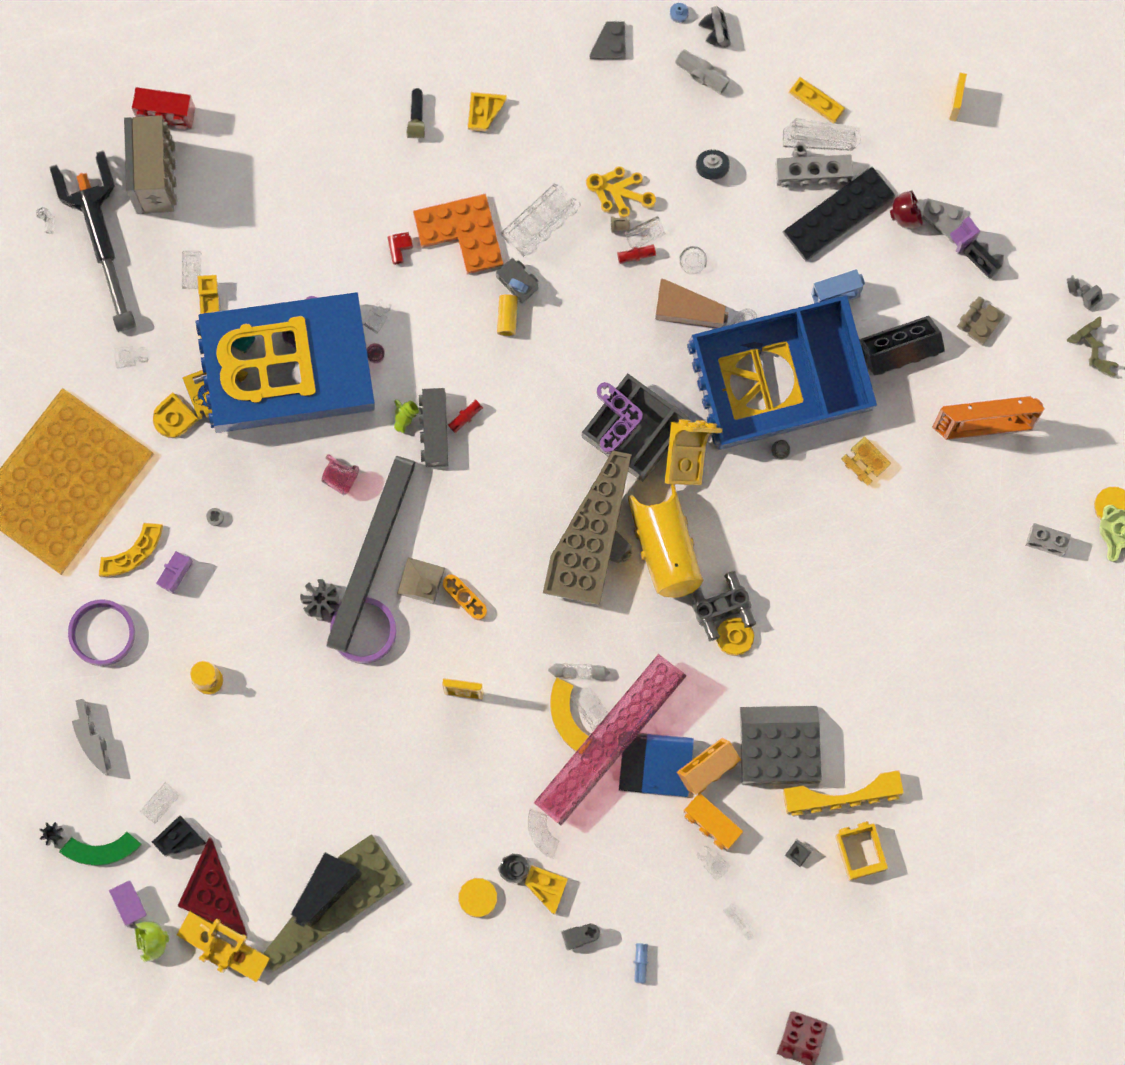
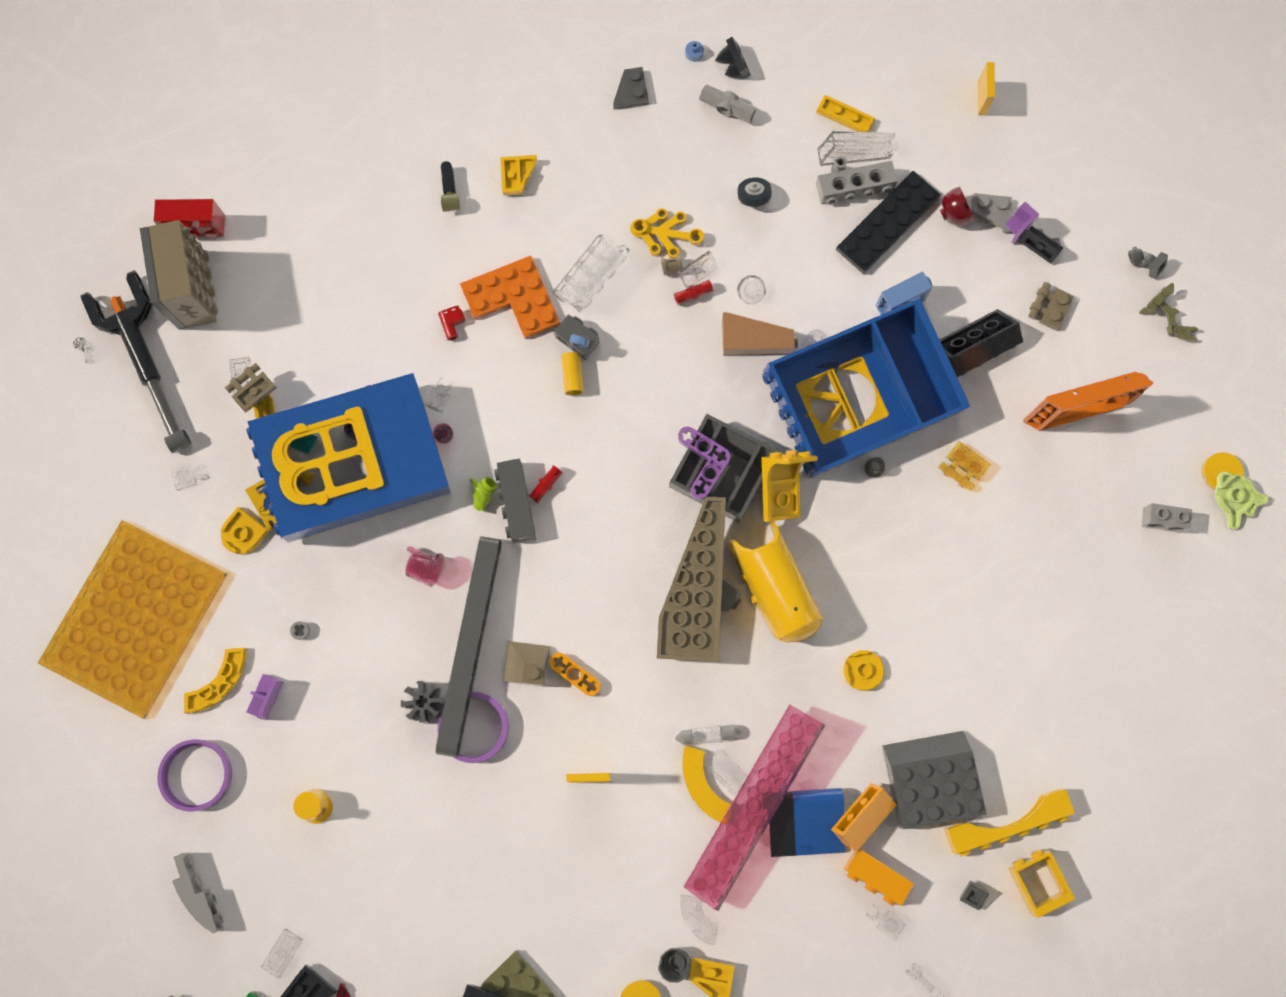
camera: 10 degrees left, 0 degrees up
(203, 286) = (254, 391): none -> dark tan plate
(723, 606) = (846, 641): dark grey piece -> none

